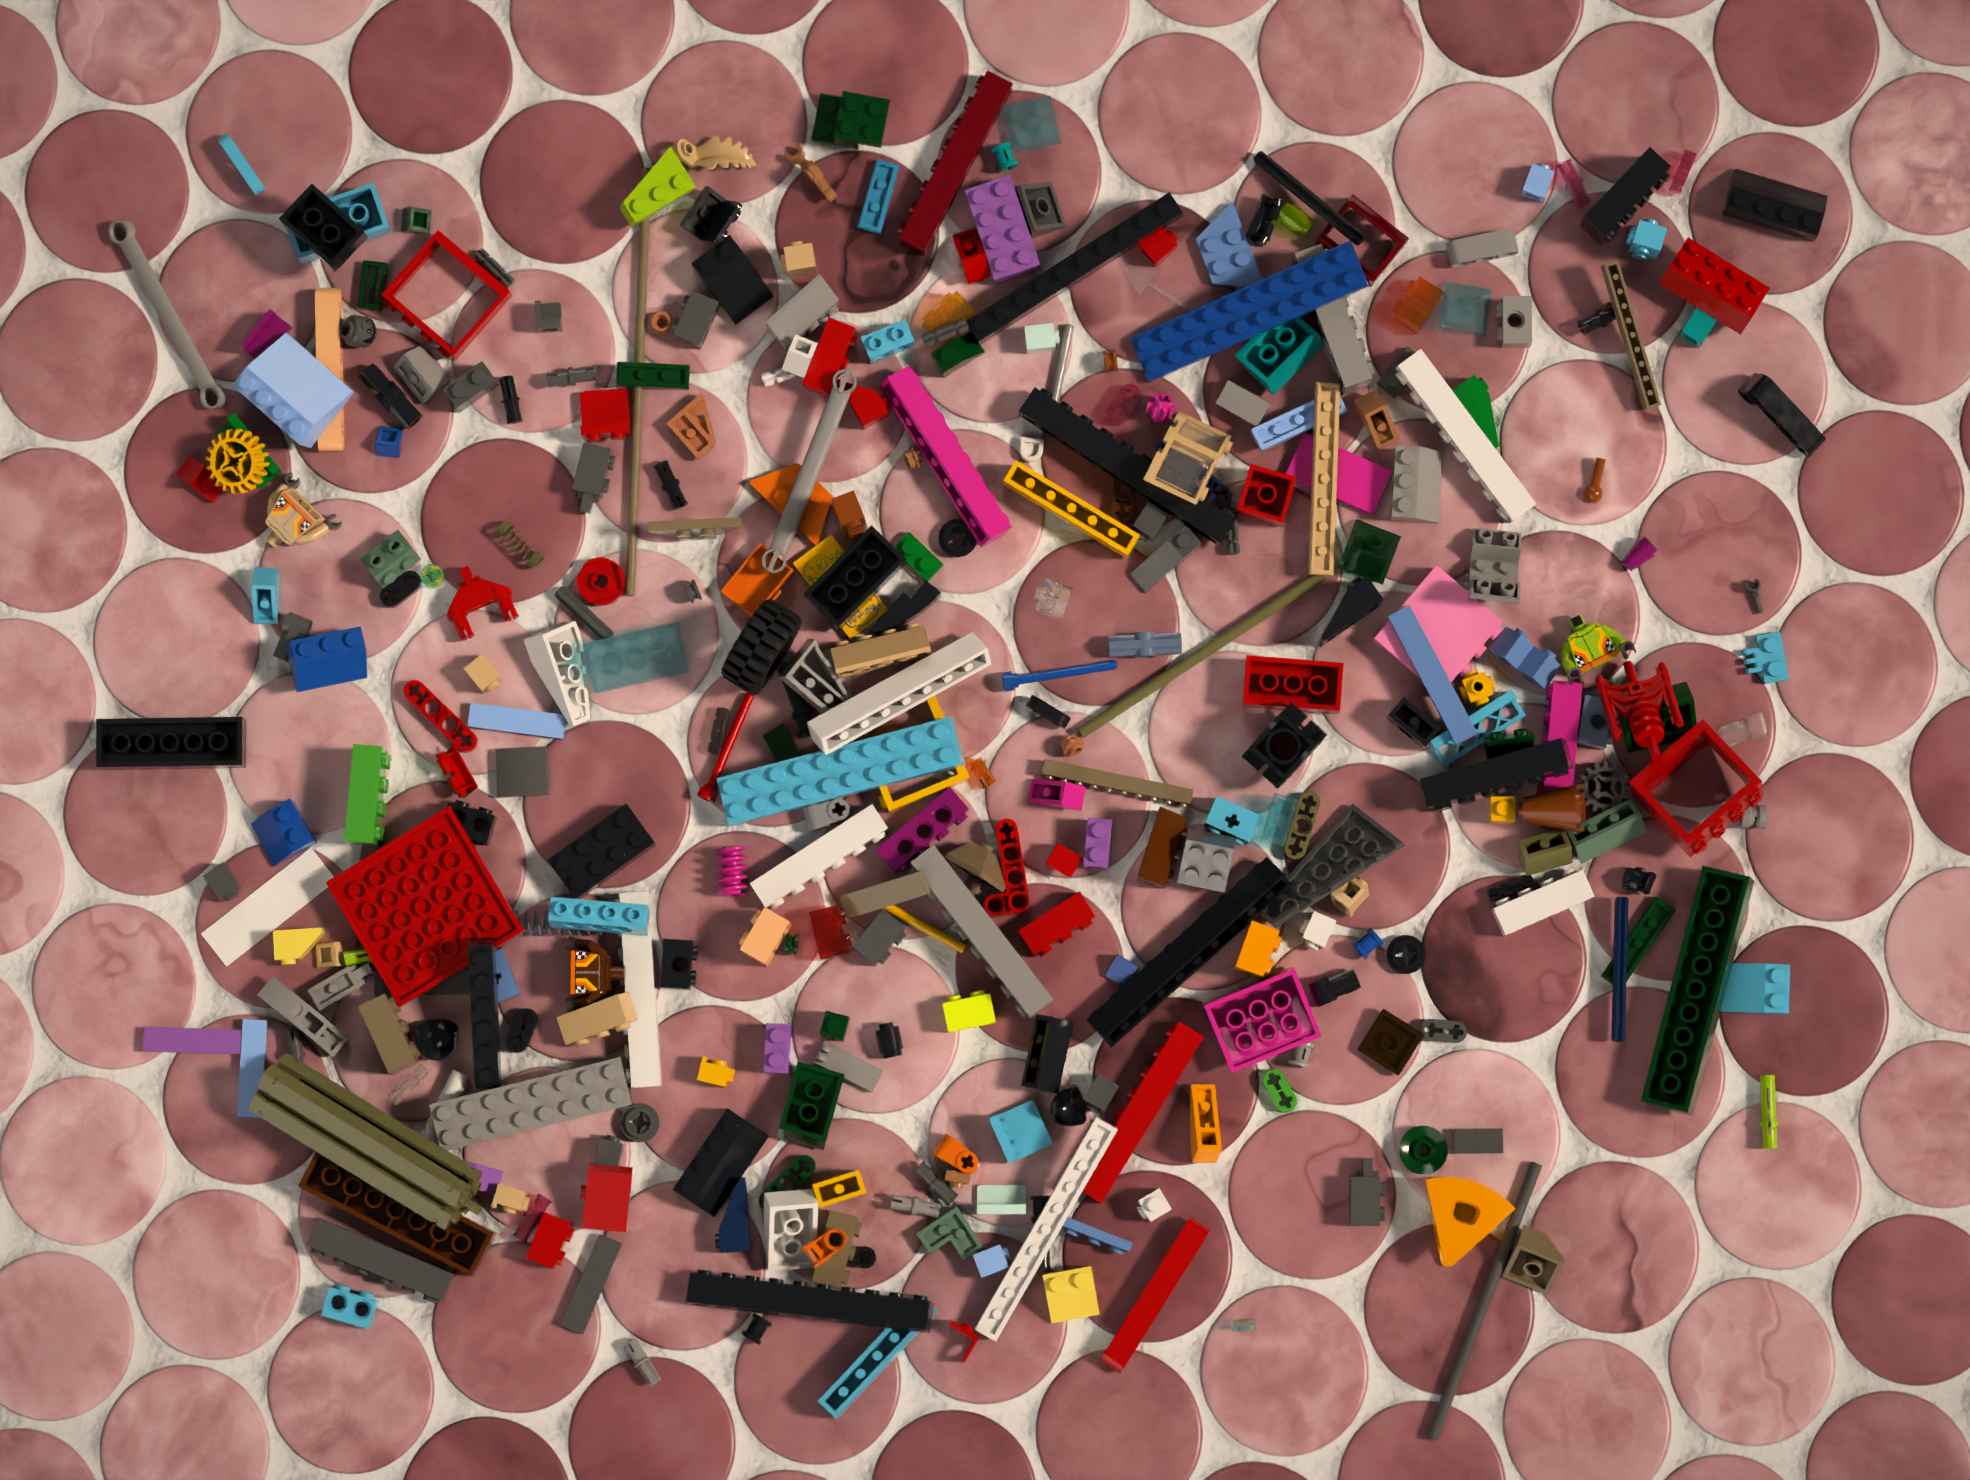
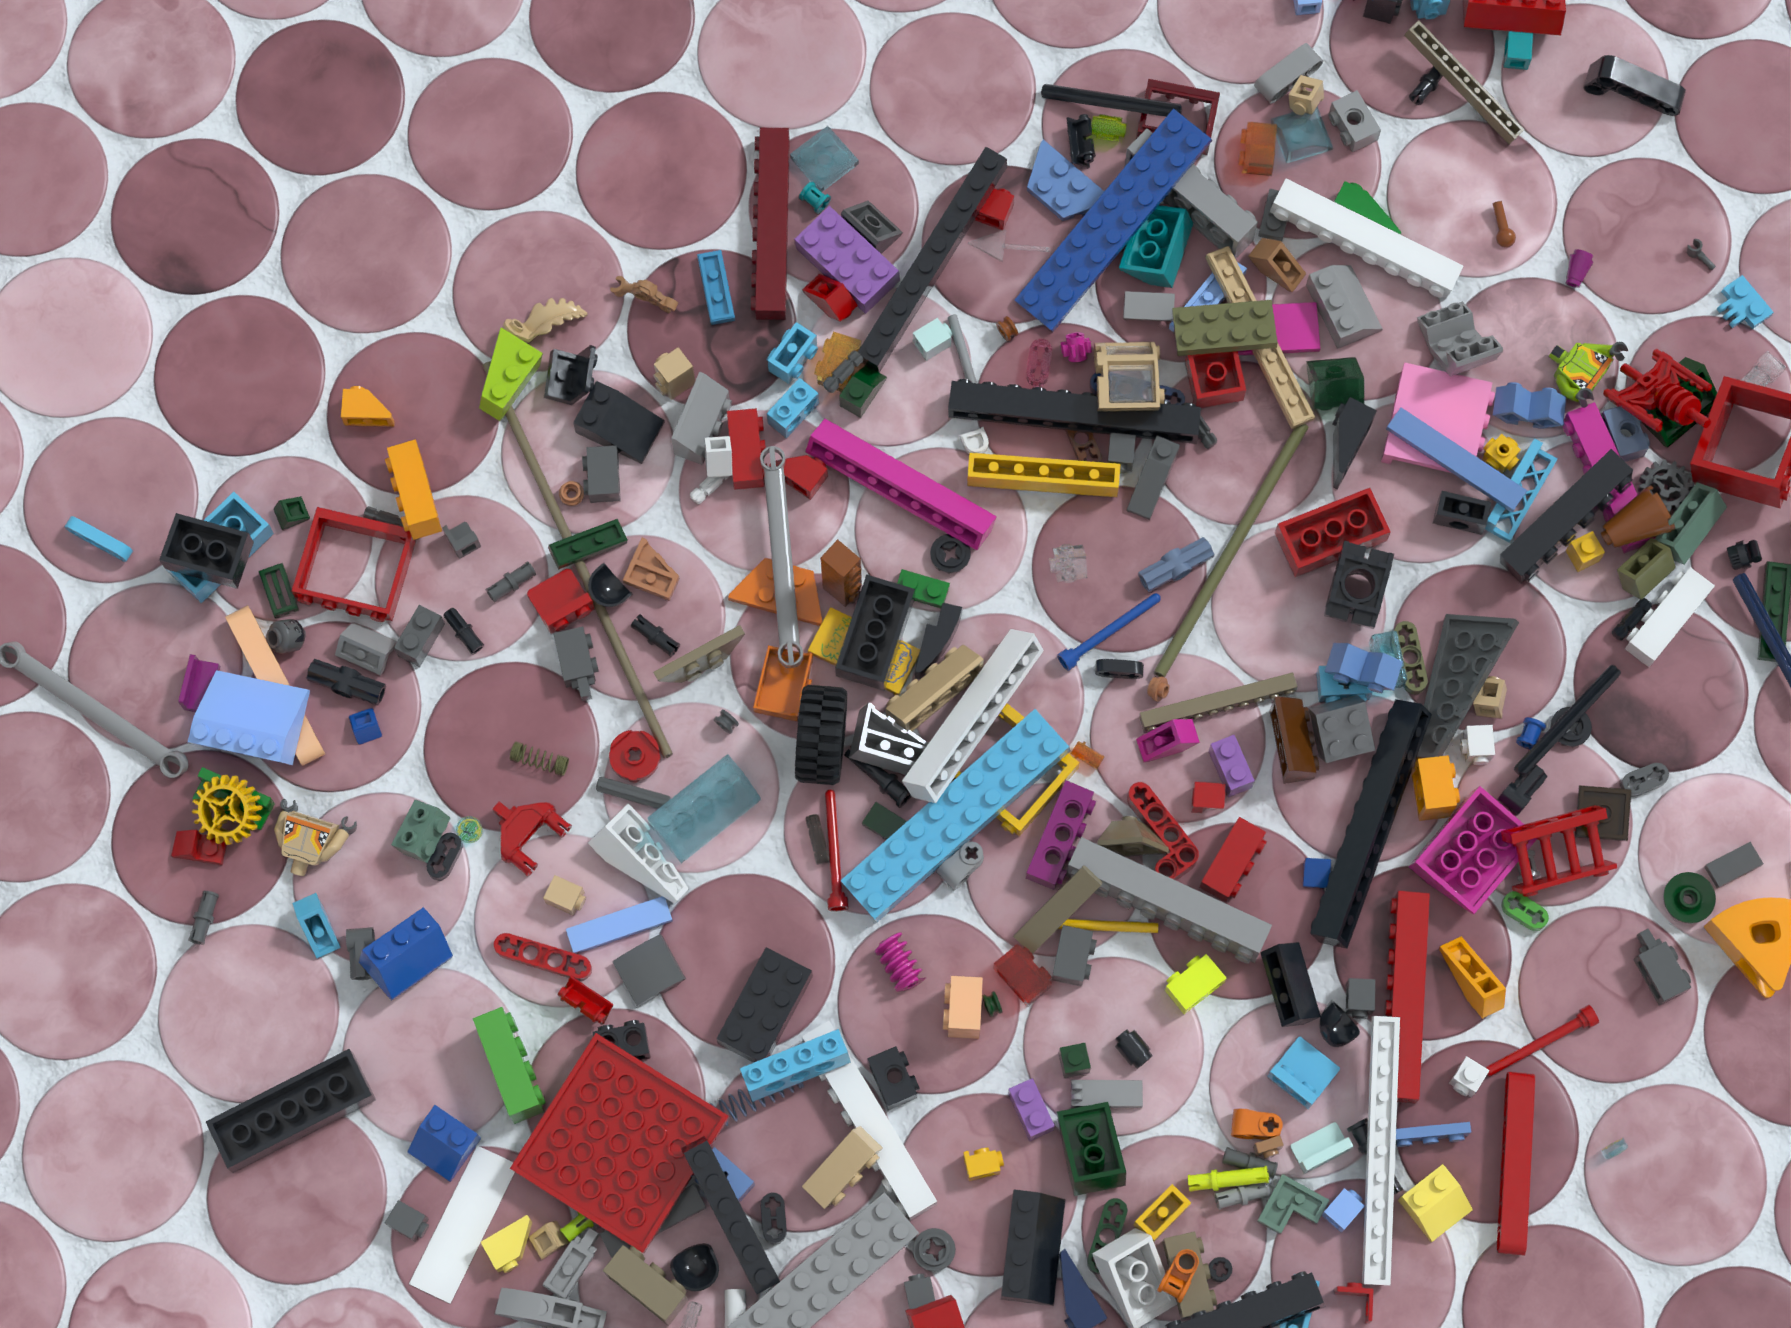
camera: 30 degrees left, 10 degrees down
(176, 542) = (203, 917): none -> dark grey pin
(520, 158) = (363, 409): none -> light orange slope
(527, 255) = (414, 490): none -> light orange brick
(590, 973) = (814, 1126): reddish brown torso -> none
(650, 425) = (607, 588): none -> black helmet
(820, 856) = (975, 908): white brick -> none
(850, 120) = (656, 229): dark green bracket -> none
(909, 1187) = (1217, 1180): none -> neon yellow pin
(912, 292) = (792, 353): none -> medium azure brick
(913, 458) = (870, 502): medium nougat plate -> none
(1250, 818) = (1361, 667): none -> medium blue brick
(1278, 1206) = (1585, 1018): none -> red piece
(1294, 457) = (1224, 327): none -> olive plate
(1325, 1033) = (1542, 831): none -> red fence
(1403, 948) = (1570, 717): none -> black axle
(1484, 277) = (1306, 101): none -> tan brick
(1500, 743) = (1549, 492): dark green bracket -> none

